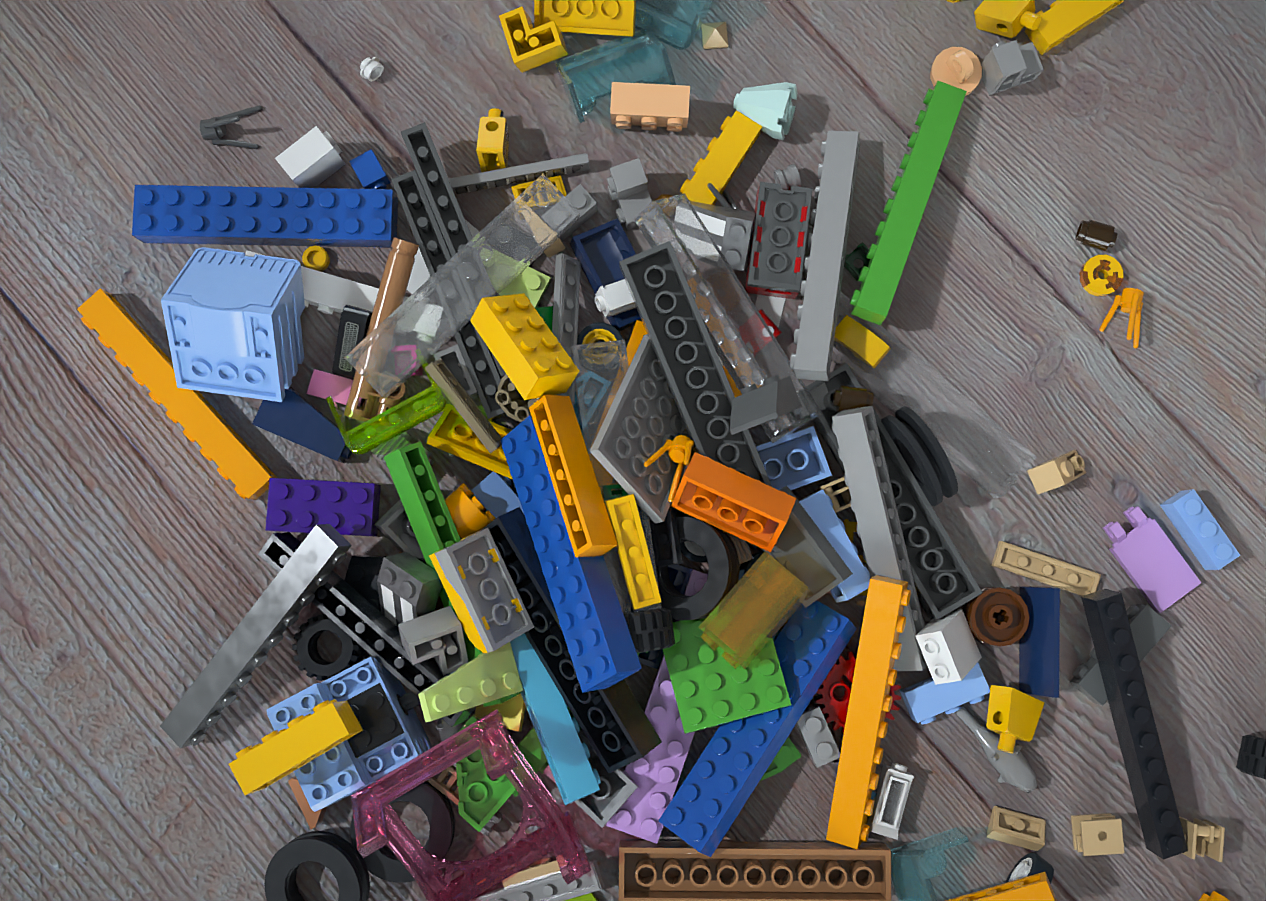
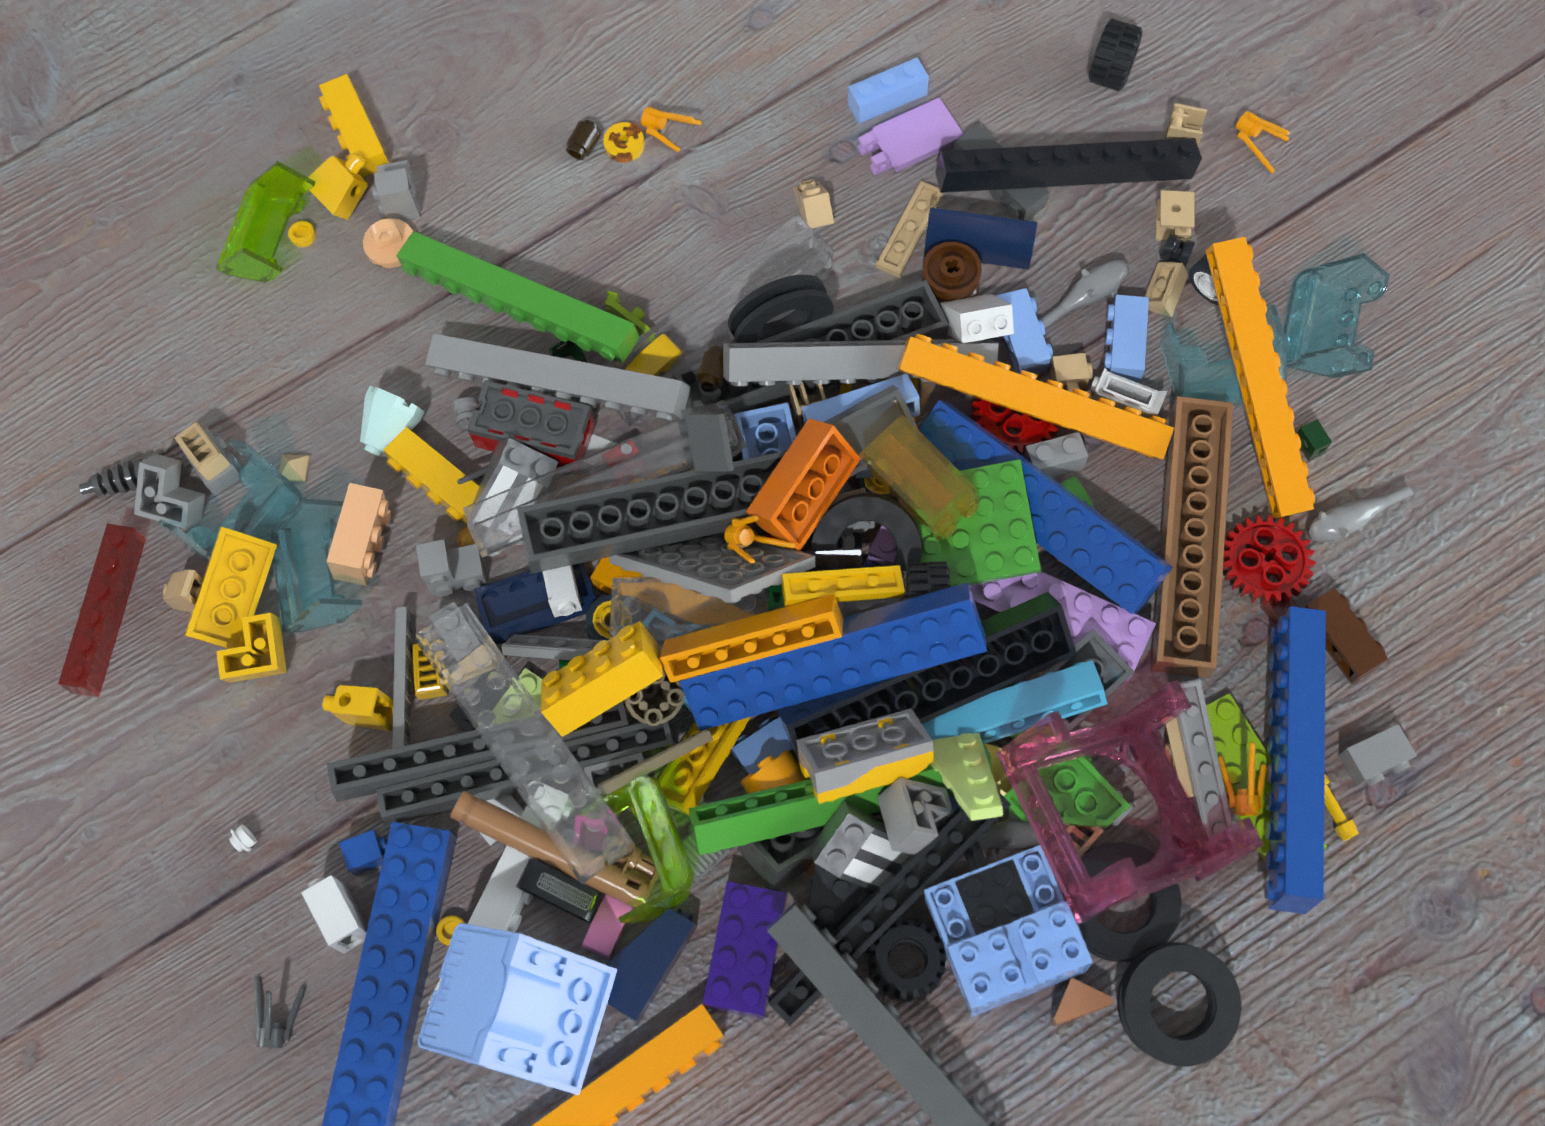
camera: 80 degrees left, 15 degrees down
(294, 747) = (1016, 957): yellow brick -> none
(906, 742) = (1071, 371): none -> tan brick
(909, 316) = (613, 306): none -> lime piece
(954, 795) = (1127, 337): none -> light blue brick
(1012, 716) = (1052, 271): yellow torso -> none
(1061, 834) = (1171, 249): none -> black wheel

